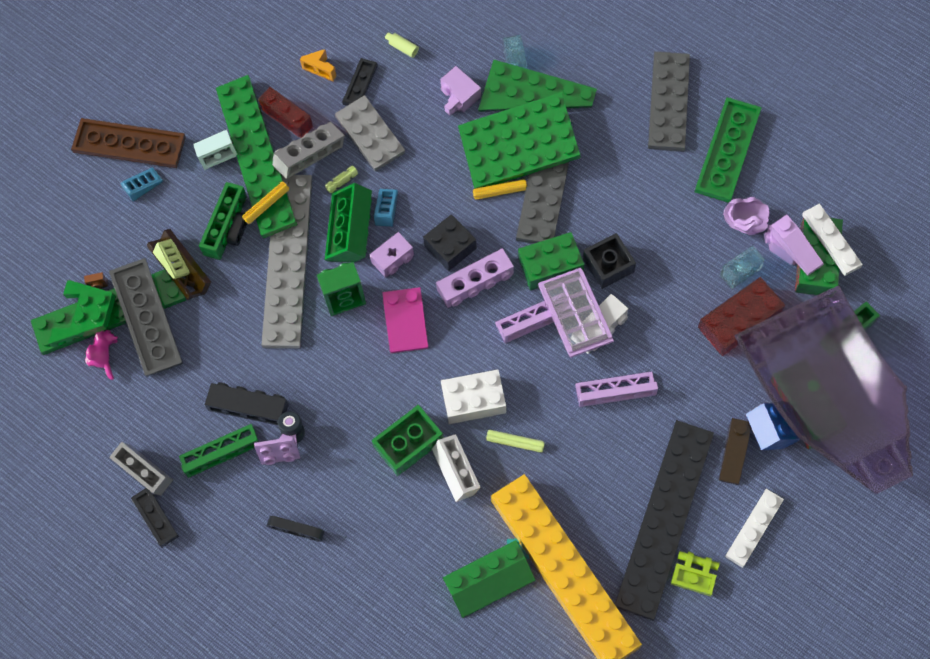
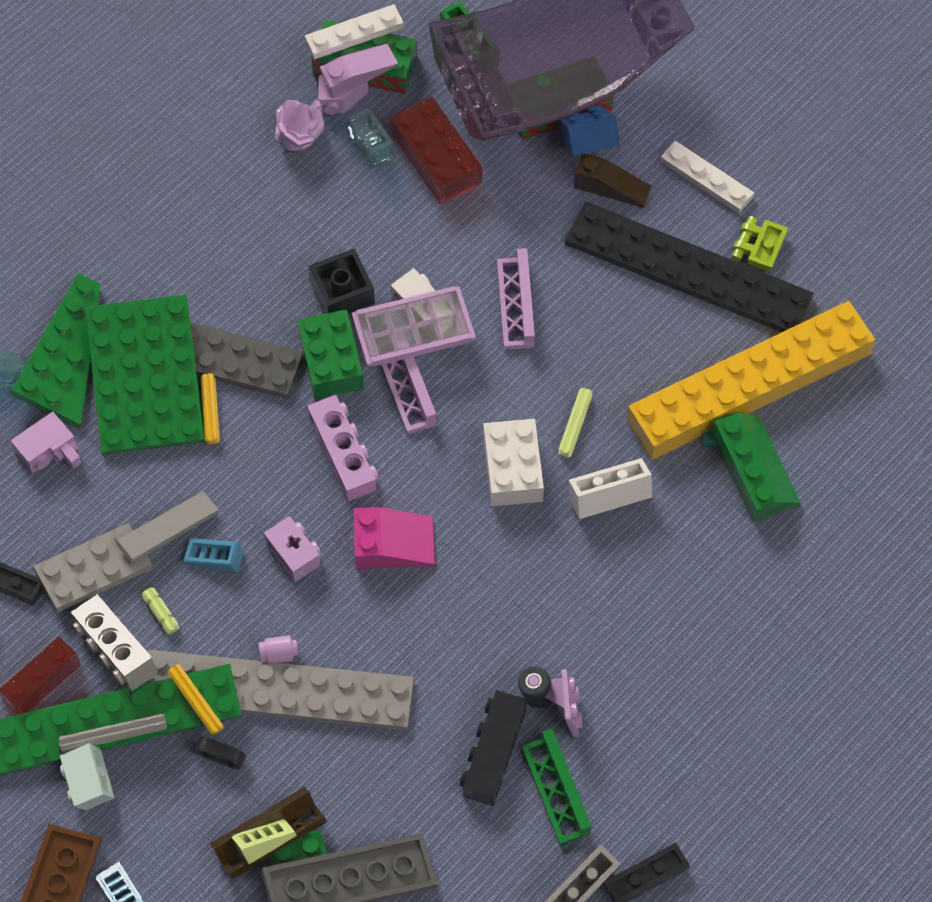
camera: 90 degrees left, 5 degrees down
(215, 236) = (208, 768): green brick -> none
(242, 158) = (113, 732): none -> light grey axle
(295, 528) = (675, 692): black beam -> none
(314, 254) = (278, 650): none -> lavender brick
(341, 288) = (345, 603): green brick -> none
(348, 224) = (235, 603): green slope -> none
(402, 173) = (167, 527): none -> light grey tile
(407, 440) = (568, 543): green brick -> none
(450, 242) = (285, 473): black brick -> none
(669, 101) = (108, 194): dark grey plate -> none
(727, 150) = (196, 135): green plate -> none

